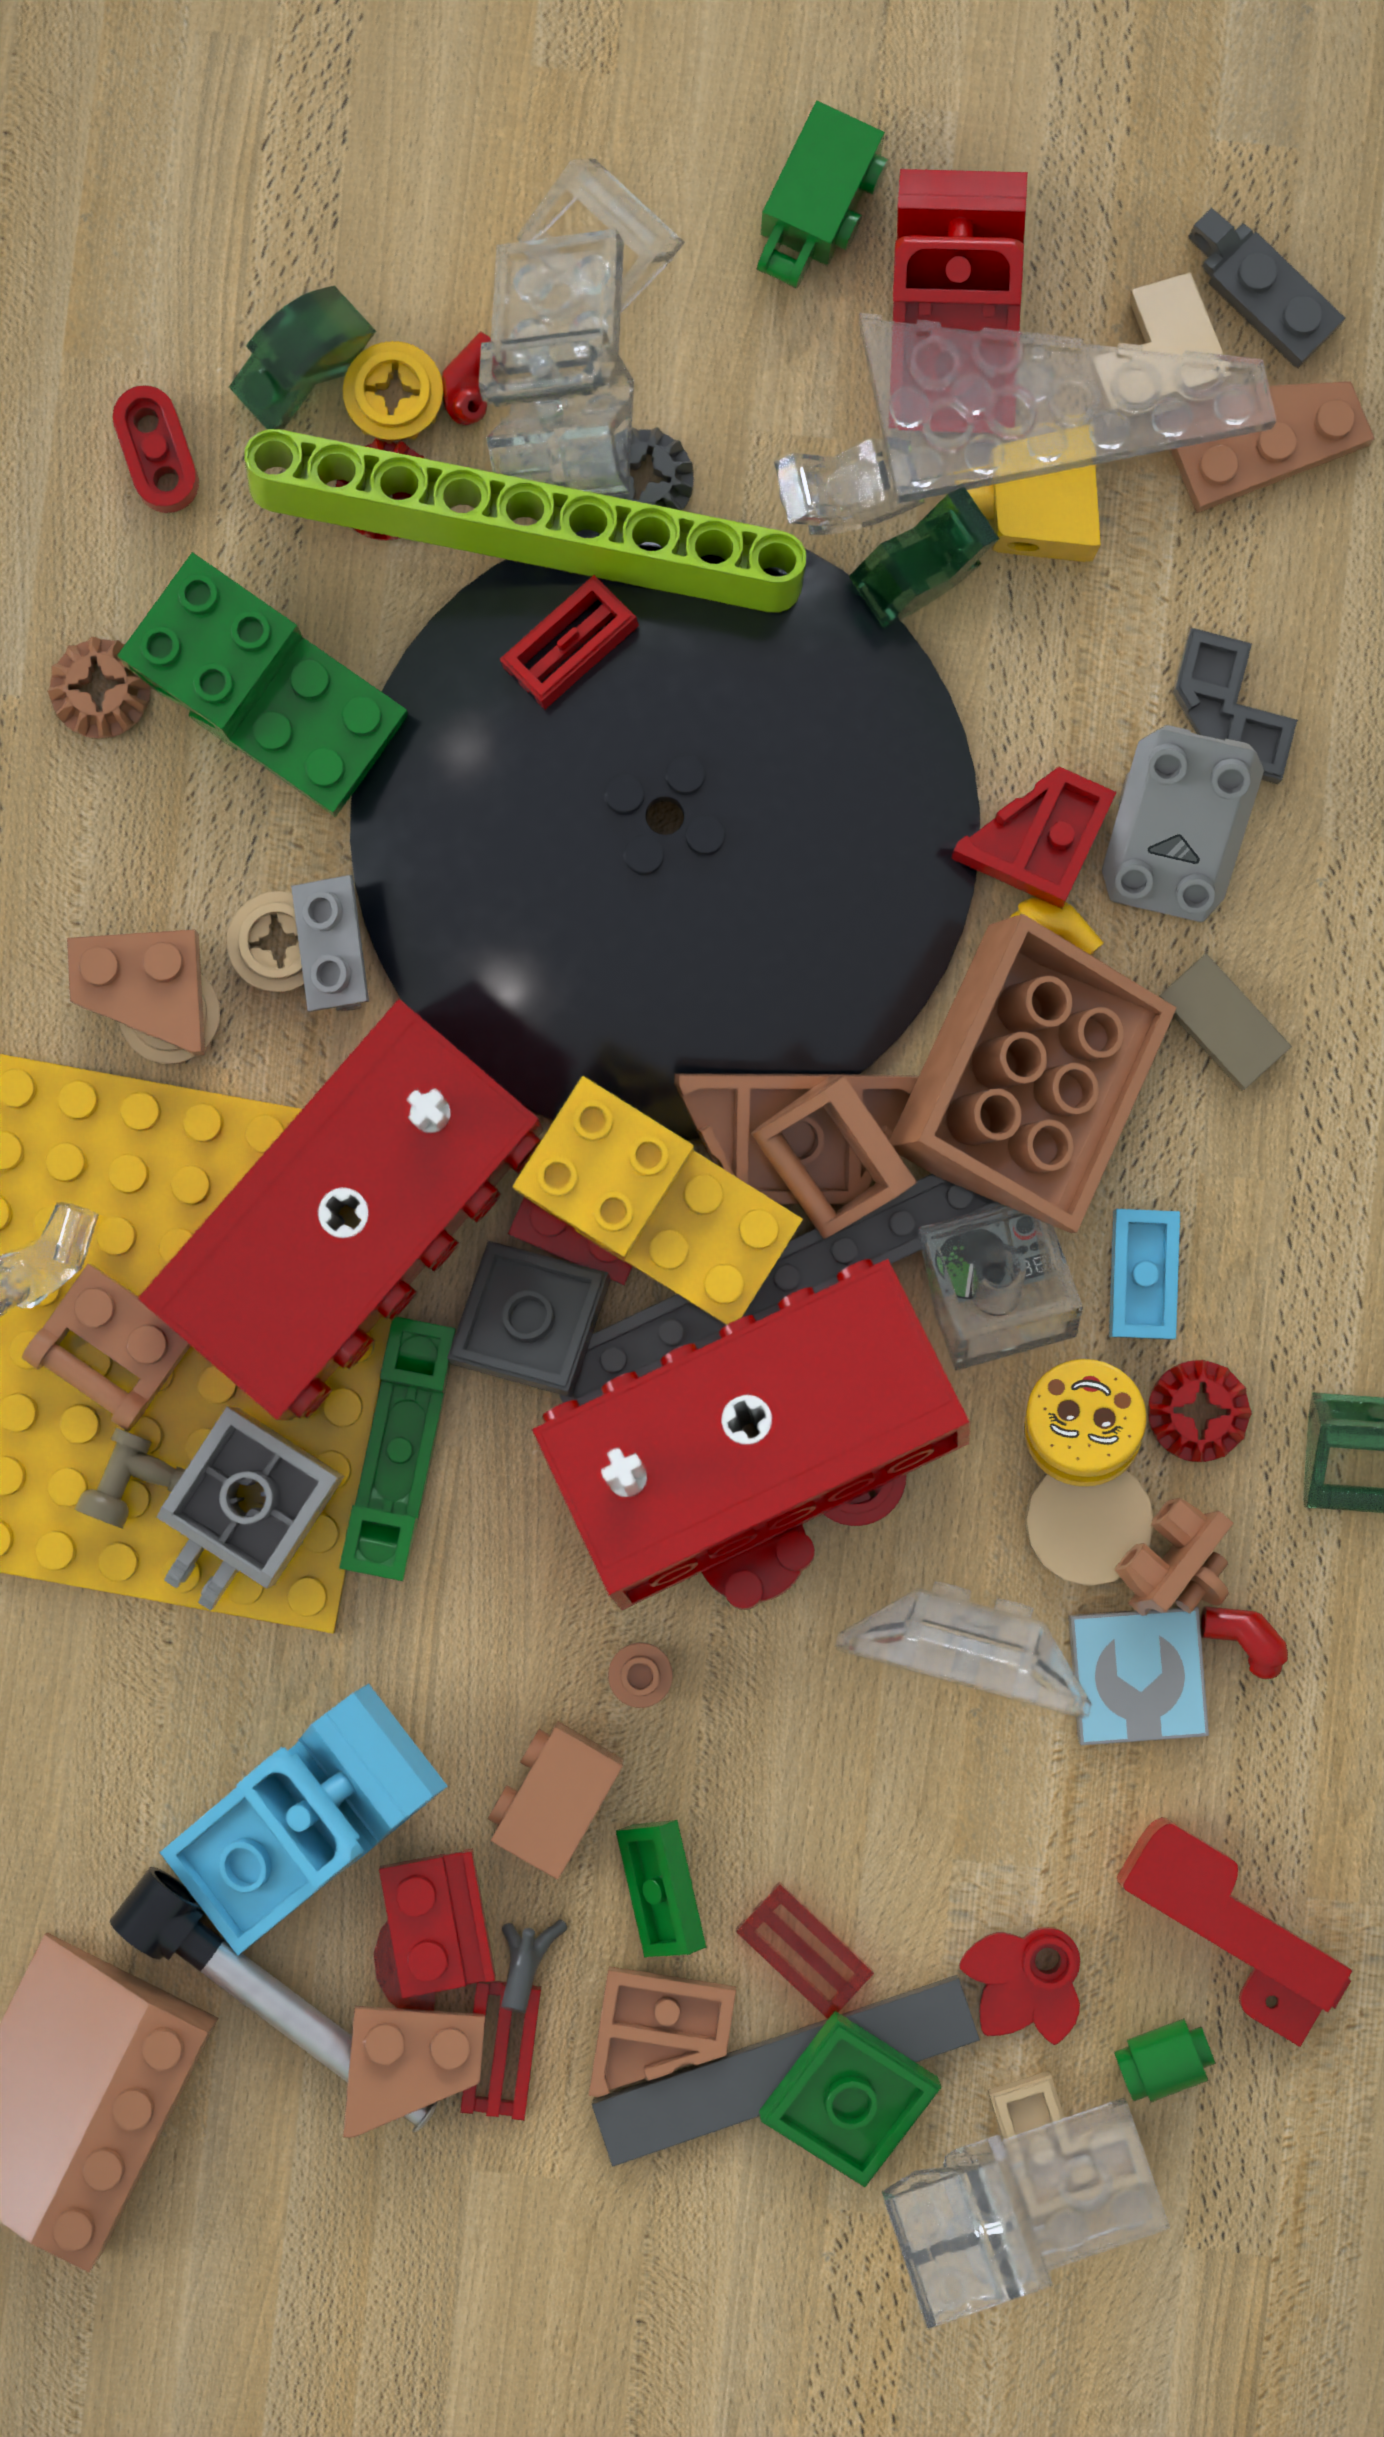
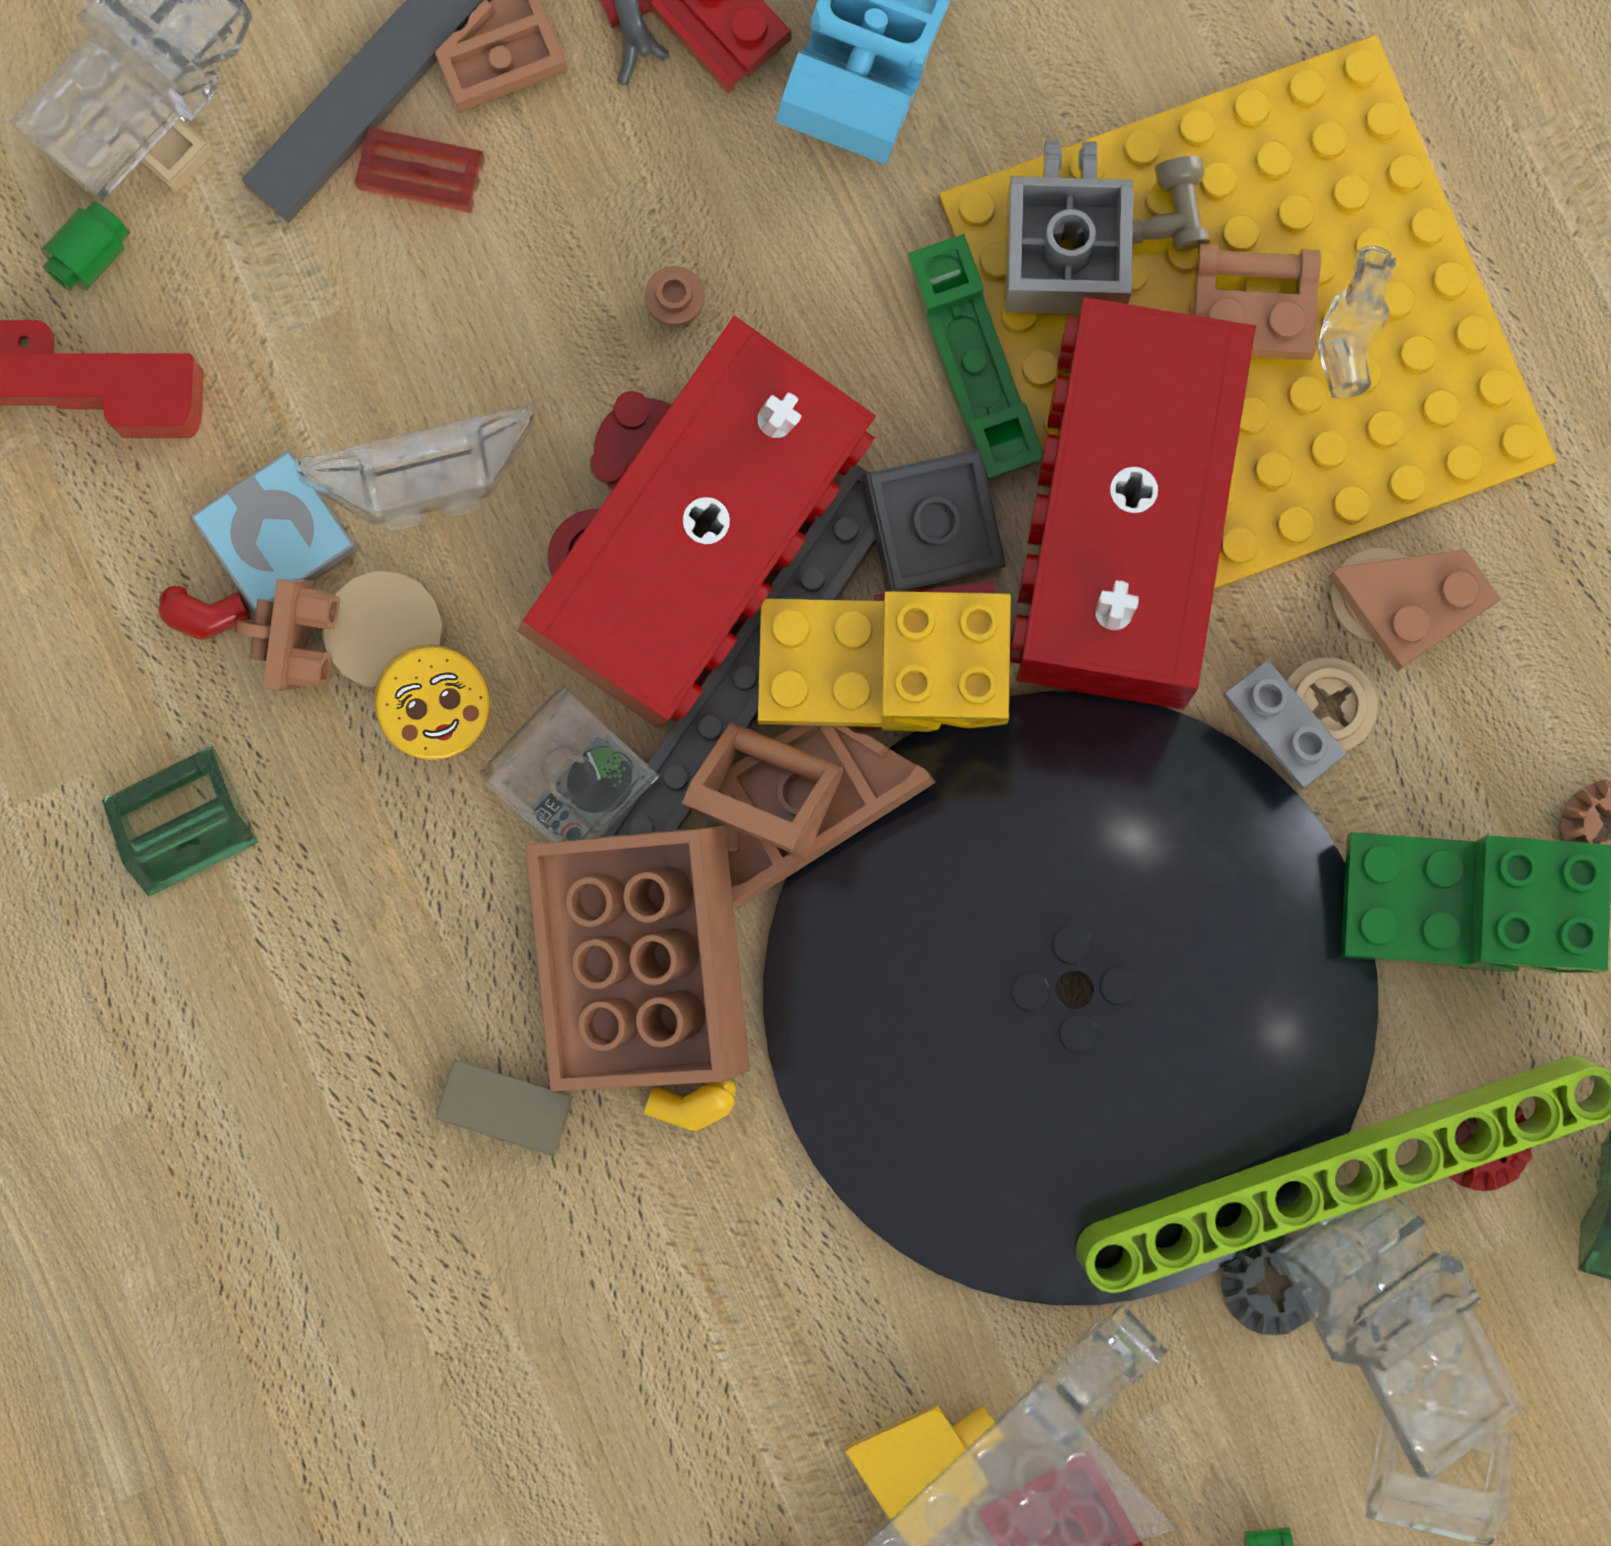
camera: 160 degrees right, 5 degrees down
(373, 372) = (1557, 1239): yellow gear -> none
(461, 384) = (1481, 1271): red arm -> none
(555, 1799) = (684, 166): nougat brick -> none
(585, 658) = (1223, 1083): red tile -> none
(661, 1889) = (560, 147): green plate -> none
(849, 2099) = (318, 76): green tile -> none
(925, 560) = (989, 1349): clear green brick -> none
(1018, 1989) = (233, 239): red plate -> none
(1042, 837) = (748, 1170): red wing -> none
(1144, 1274) = (451, 854): medium azure plate -> none
(1177, 1432) = (370, 779): red gear -> none
(1181, 822) = (636, 1248): light grey shield -> none
(1209, 692) = (678, 1387): dark grey tile -> none

